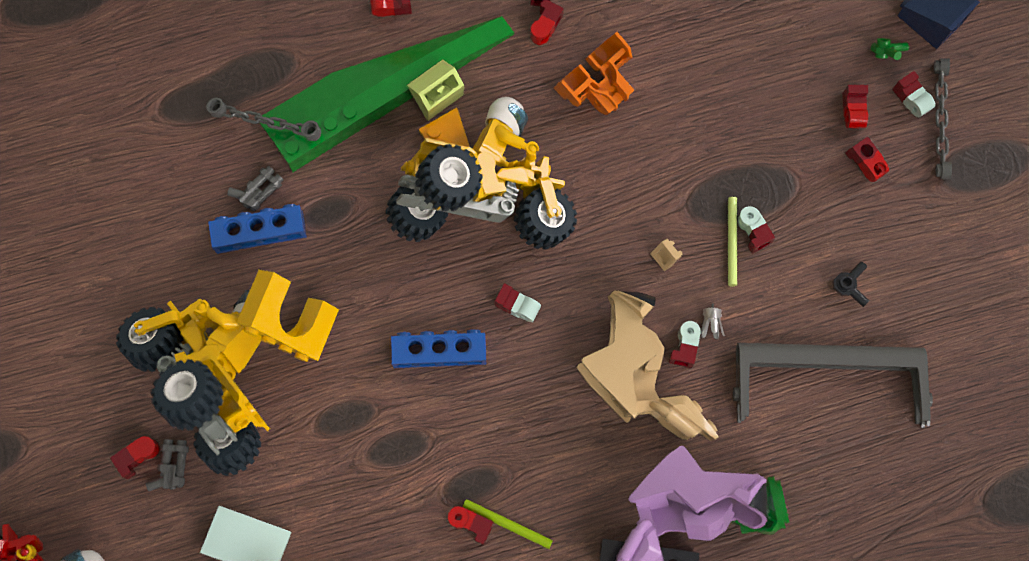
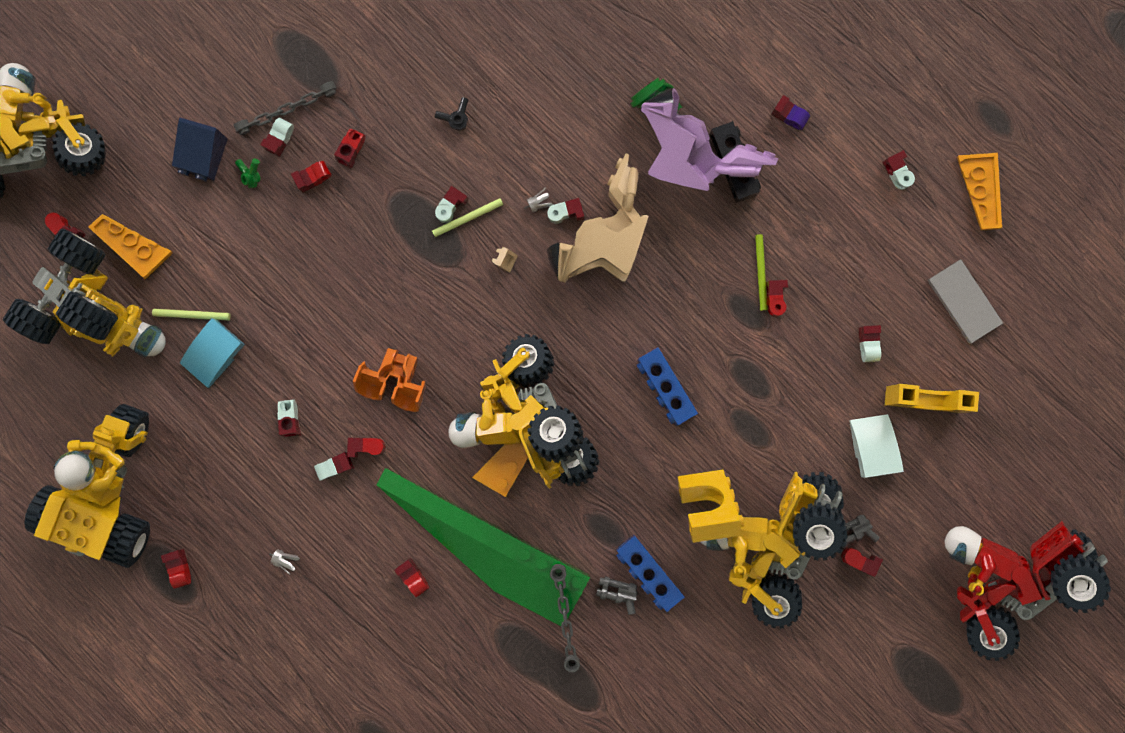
camera: 115 degrees left, 10 degrees up
(437, 89) = (468, 499): yellowish green slope -> none
(517, 304) = (601, 348): leg -> none
(834, 357) = (519, 105): dark grey piece -> none

